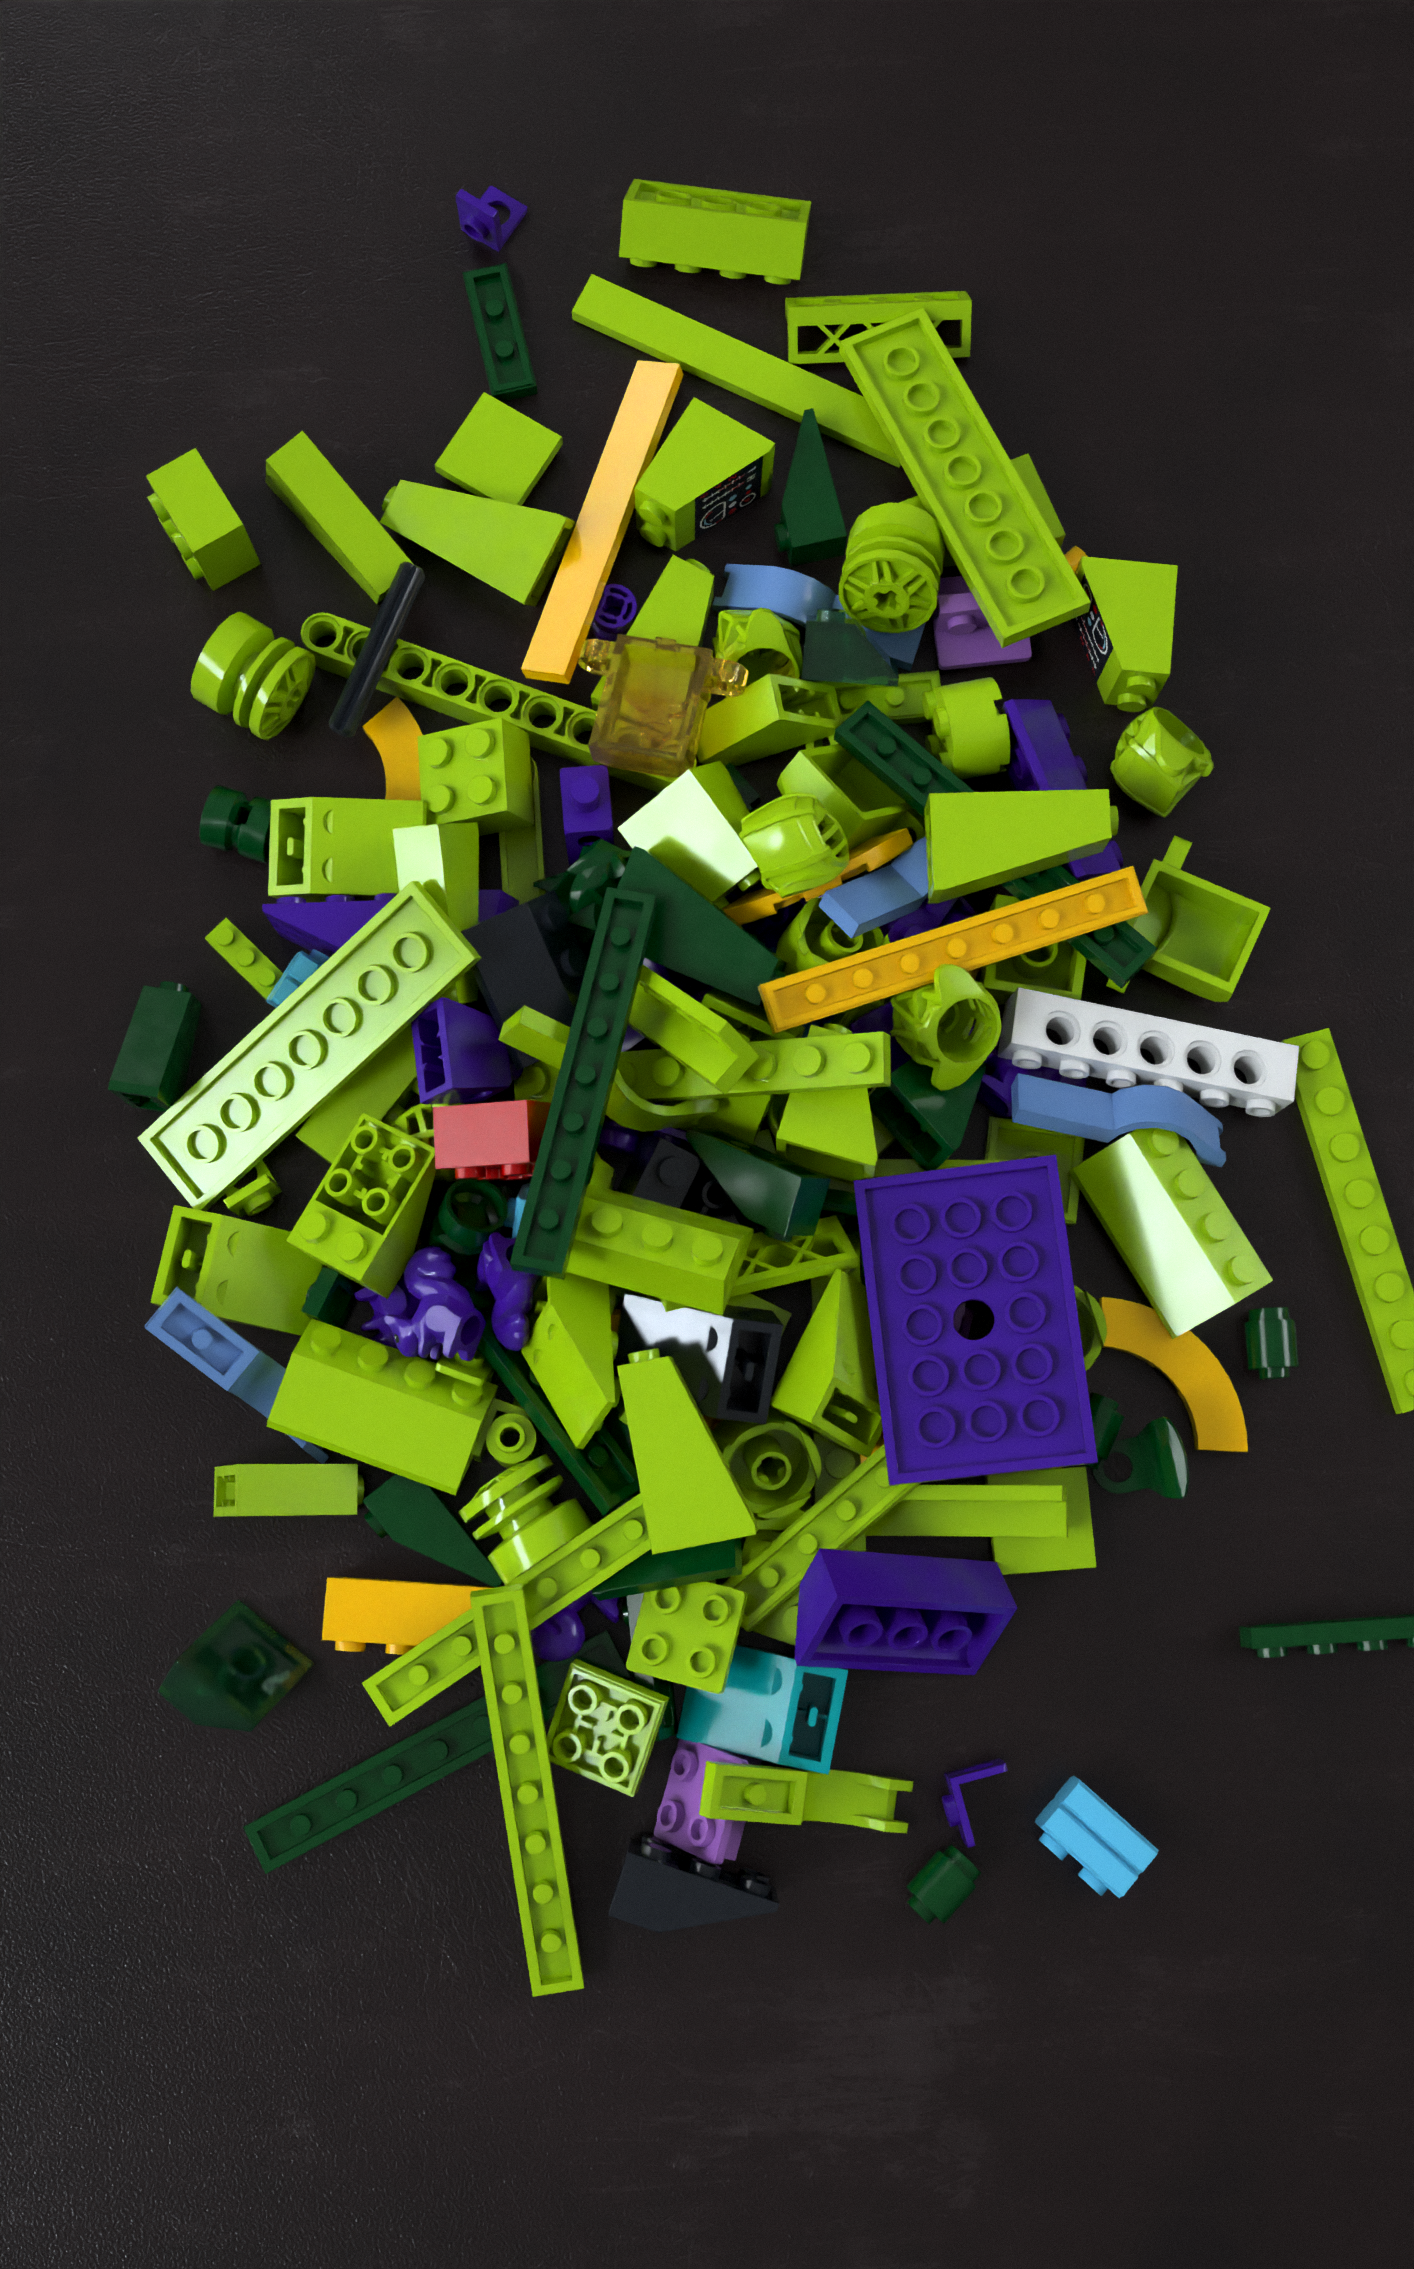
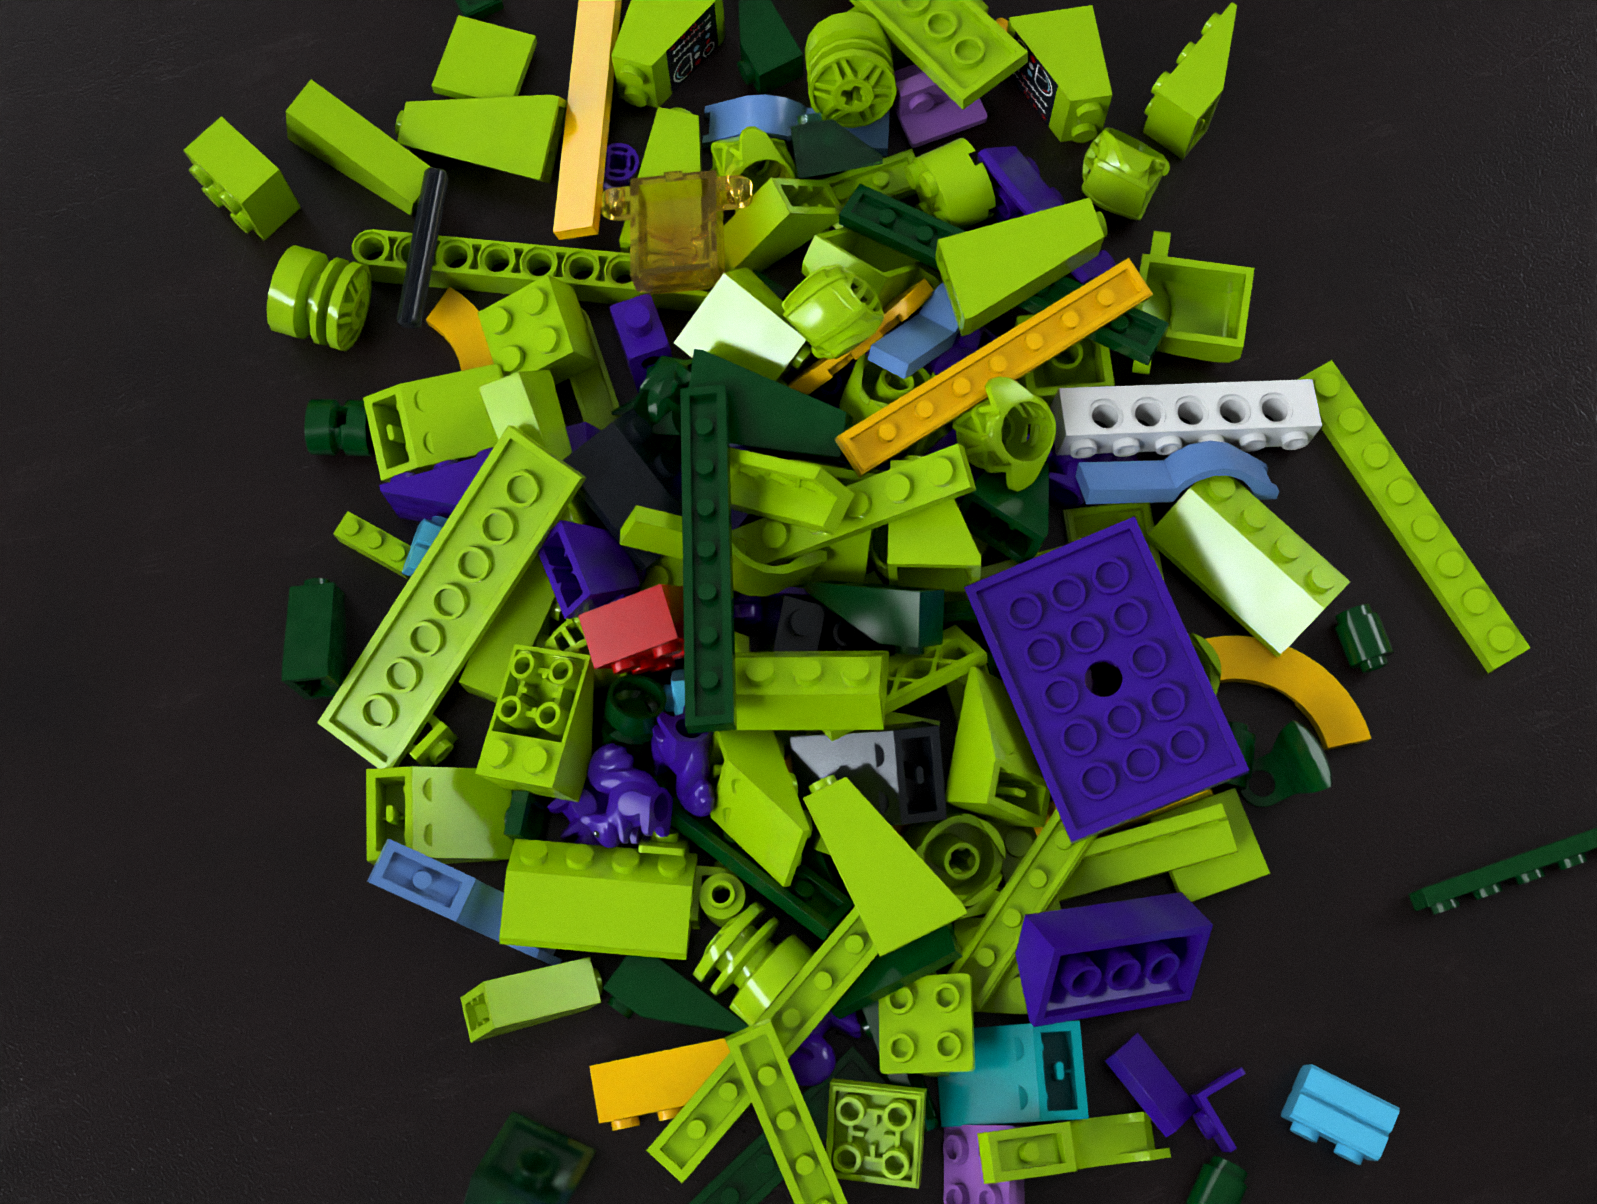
camera: 10 degrees left, 5 degrees down
(907, 1754) = (1151, 1085): none -> dark purple tile
(1257, 694) = (1190, 94): none -> lime slope

